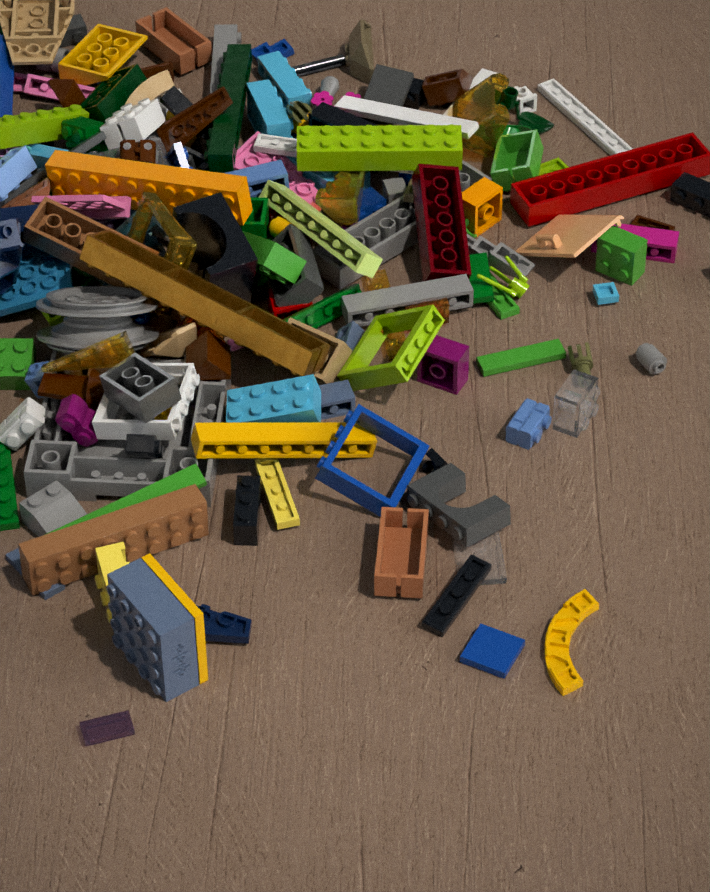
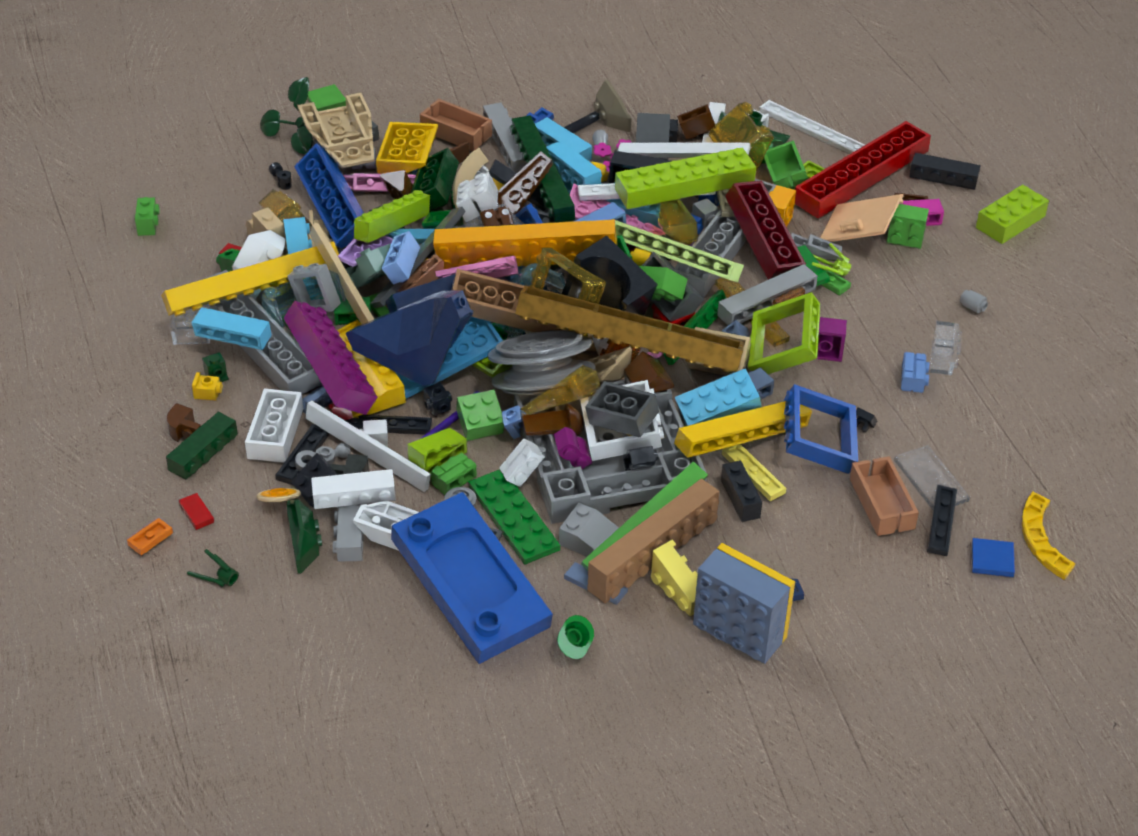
camera: 20 degrees left, 0 degrees up
(80, 129) = (433, 210): green brick -> none
(107, 728) = (732, 698): clear purple tile -> none
(298, 110) = (602, 160): olive arm -> none
(463, 524) = (918, 462): dark grey arch -> none
(521, 357) = (875, 321): bright green tile -> none
(581, 363) = (923, 314): olive arm -> none
(605, 293) = (908, 258): medium azure plate -> none

